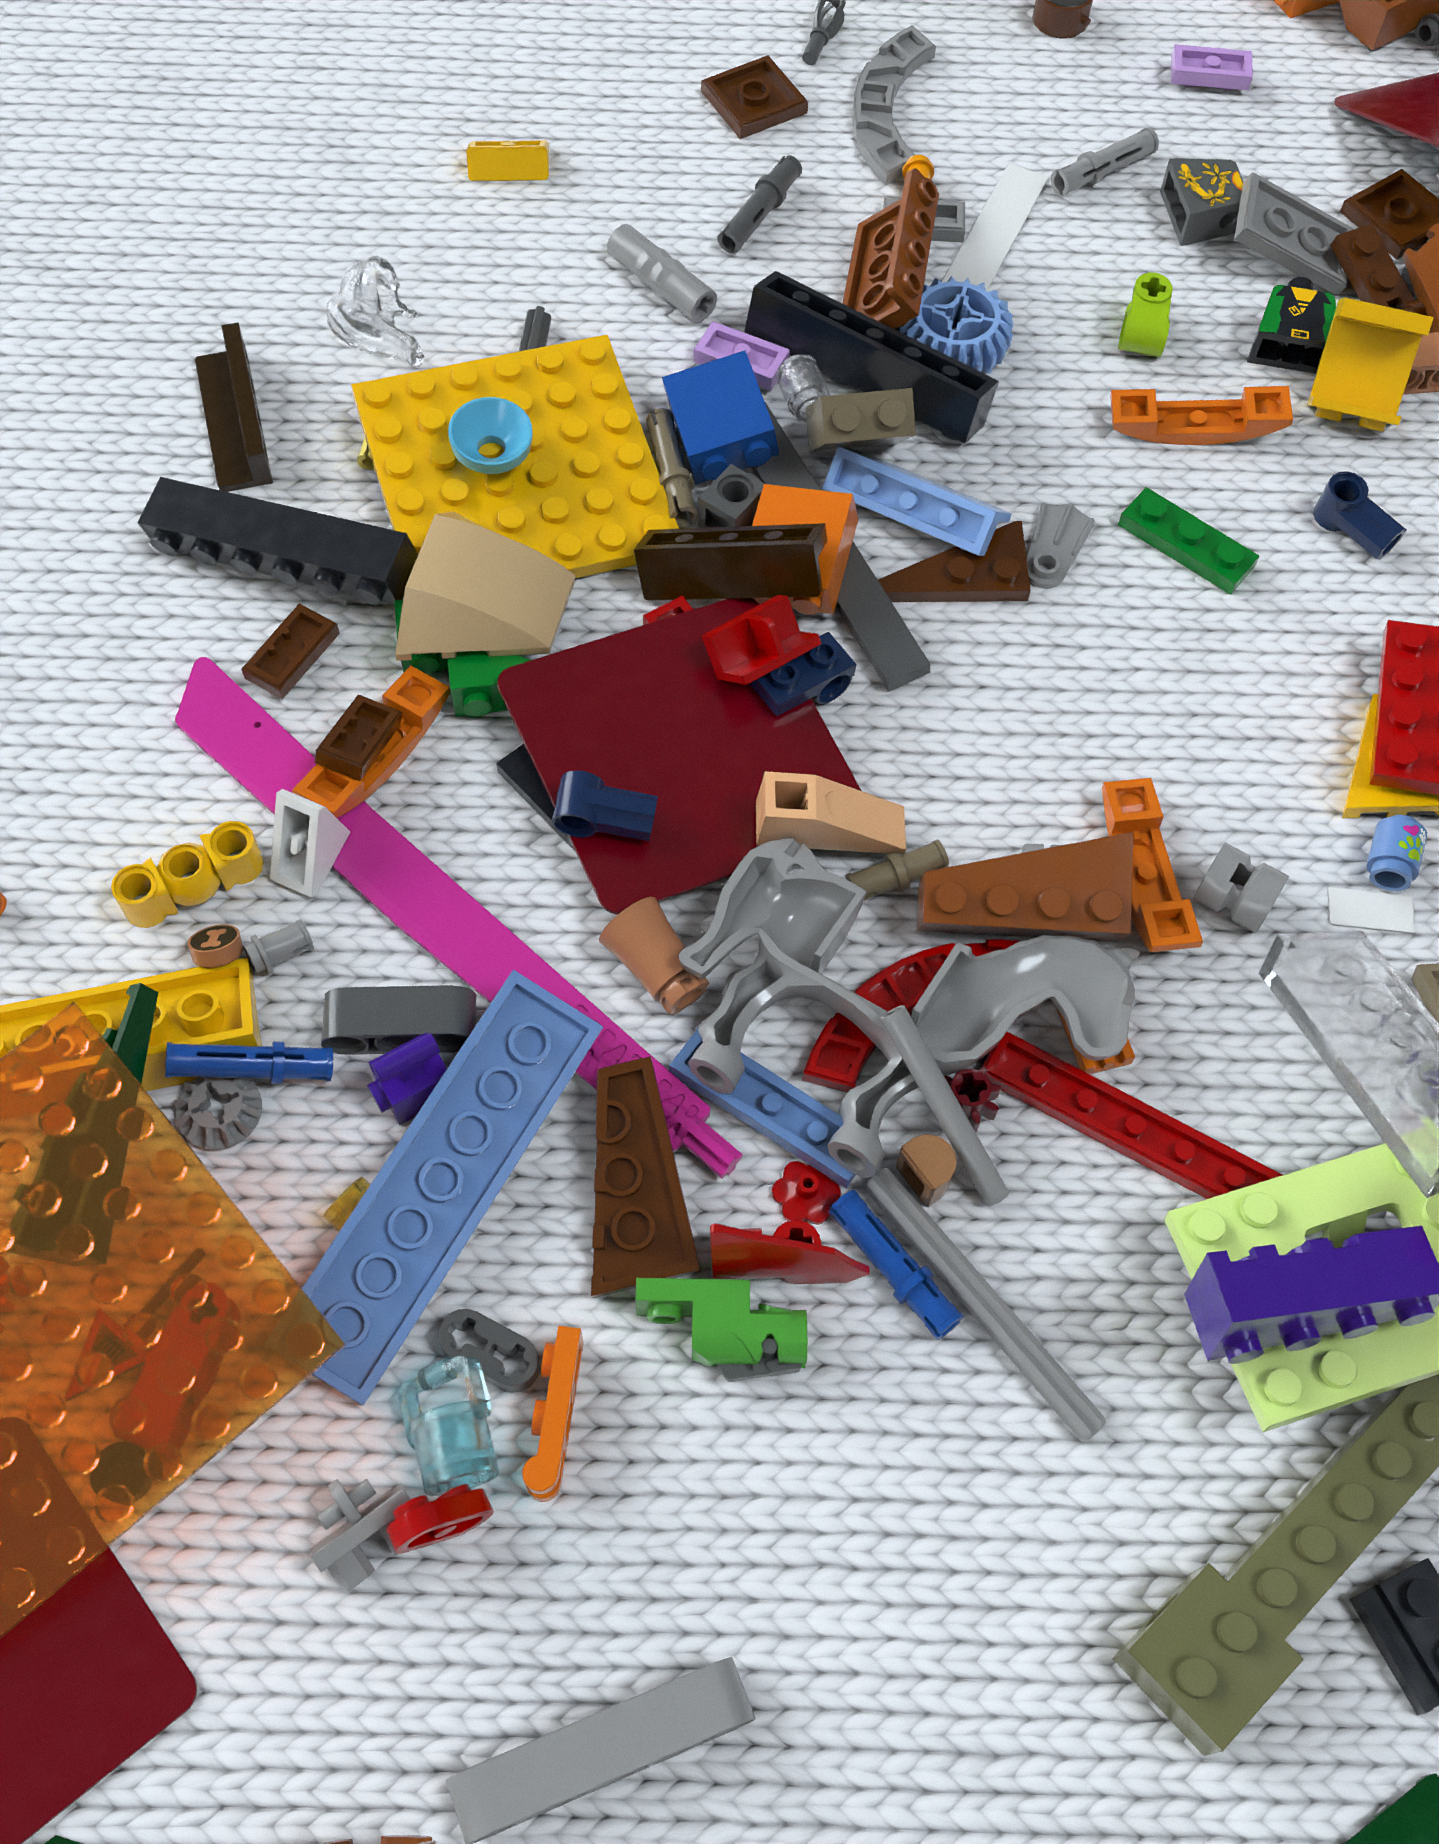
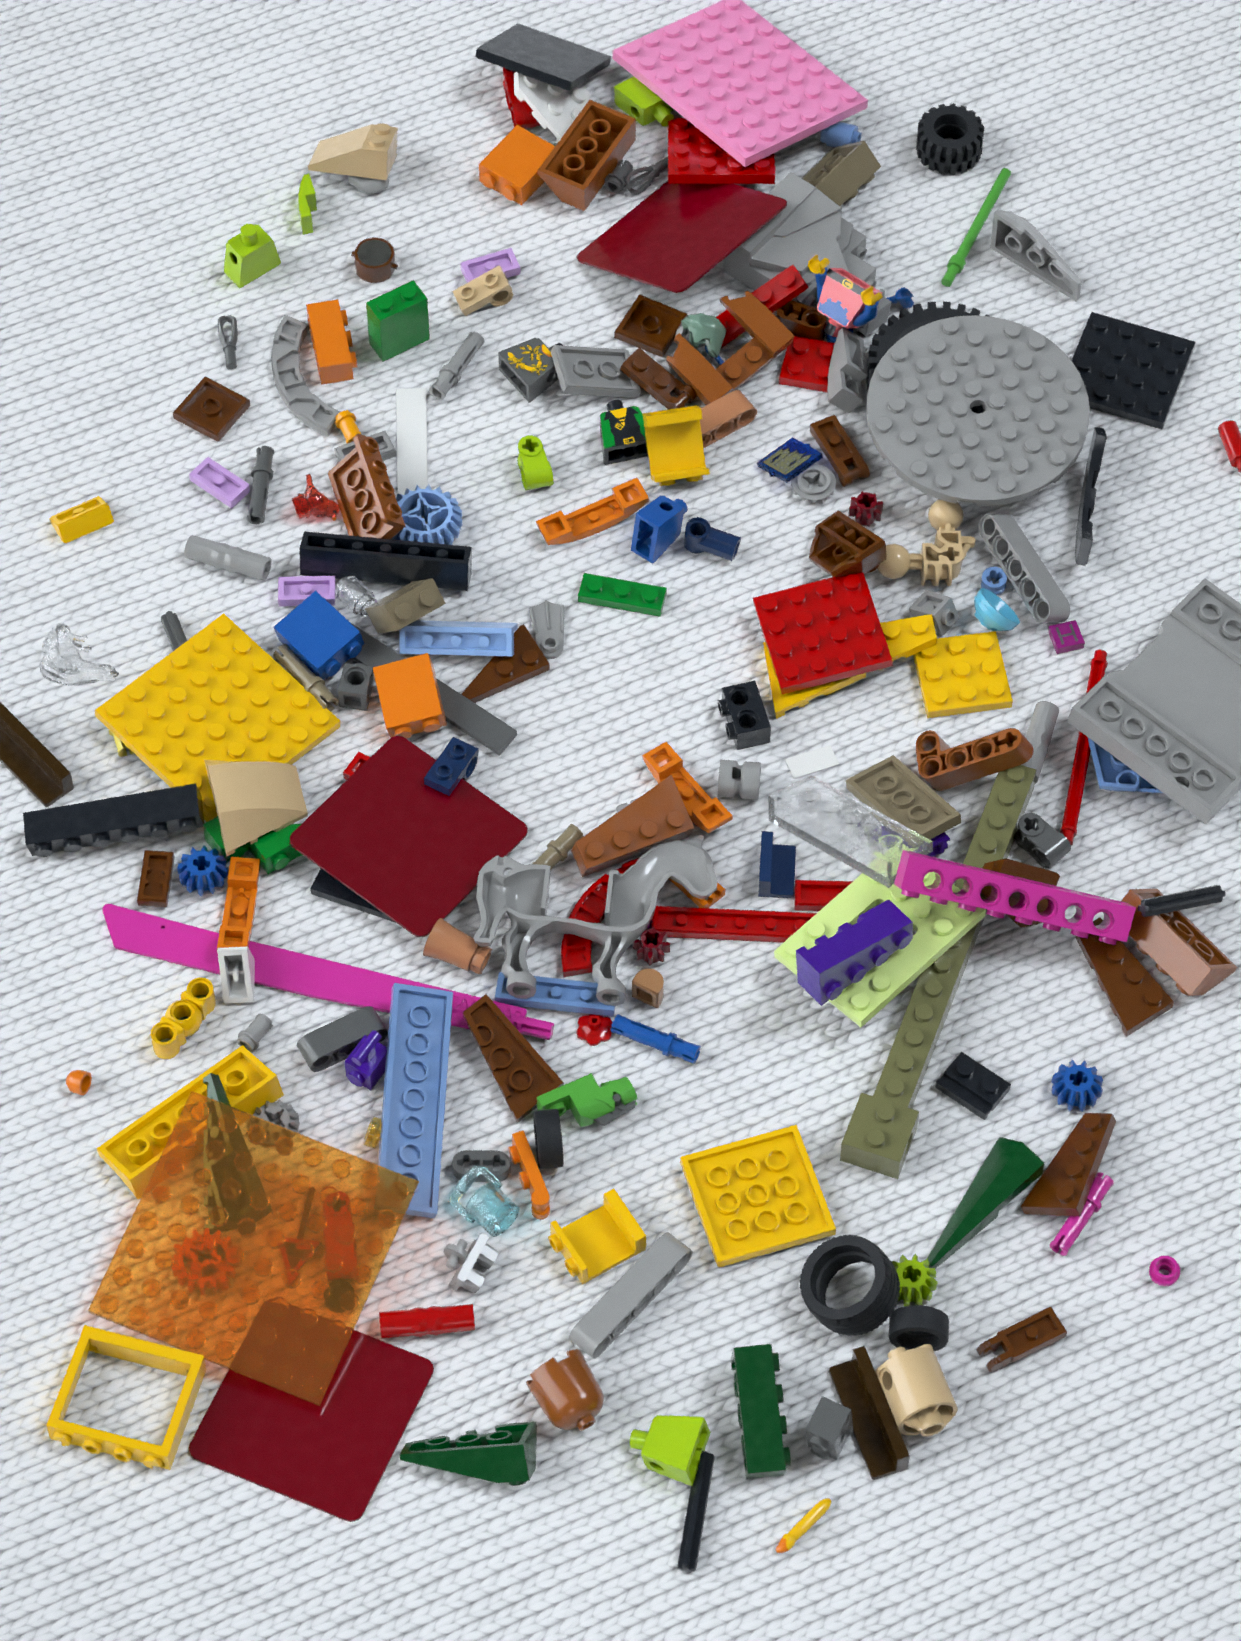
camera: 25 degrees left, 5 degrees down
(215, 946) = (221, 1047): nougat tile -> none
(227, 1606) = (427, 1321): none -> red axle
(259, 1062) = (292, 1086): blue pin -> none
(358, 666) = (202, 870): none -> blue gear
(358, 737) = (231, 906): reddish brown plate -> none
(427, 1523) = (504, 1237): red plate -> none
(486, 422) = (203, 696): medium azure piece -> none
(590, 806) = (383, 886): dark blue piece -> none
(602, 1598) = (598, 1239): none -> yellow panel
(614, 1365) = (548, 1138): none -> black tyre
(708, 180) = (219, 482): none -> lavender plate
(731, 562) = (378, 720): dark brown panel -> none
(757, 642) = (420, 760): red panel -> none
(789, 1254) = (602, 1056): red panel -> none
(816, 250) = (314, 503): none -> clear red animal
(827, 815) = (506, 837): light nougat slope -> none
(929, 1666) = (757, 1196): none -> yellow plate
(945, 1105) = (643, 952): light grey piece -> none
(952, 73) = (331, 341): none -> orange brick
(986, 1305) = (706, 1037): light grey axle -> none
(1053, 70) = (398, 320): none -> green brick
(1198, 86) = (488, 288): none -> tan plate
(1236, 1059) = (776, 868): none -> dark blue panel
(1286, 465) = (657, 527): none -> blue torso
(1290, 1137) = (815, 894): none -> red tile
(1303, 791) = (749, 714): none -> black brick
(1396, 852) = (811, 725): medium blue brick -> none

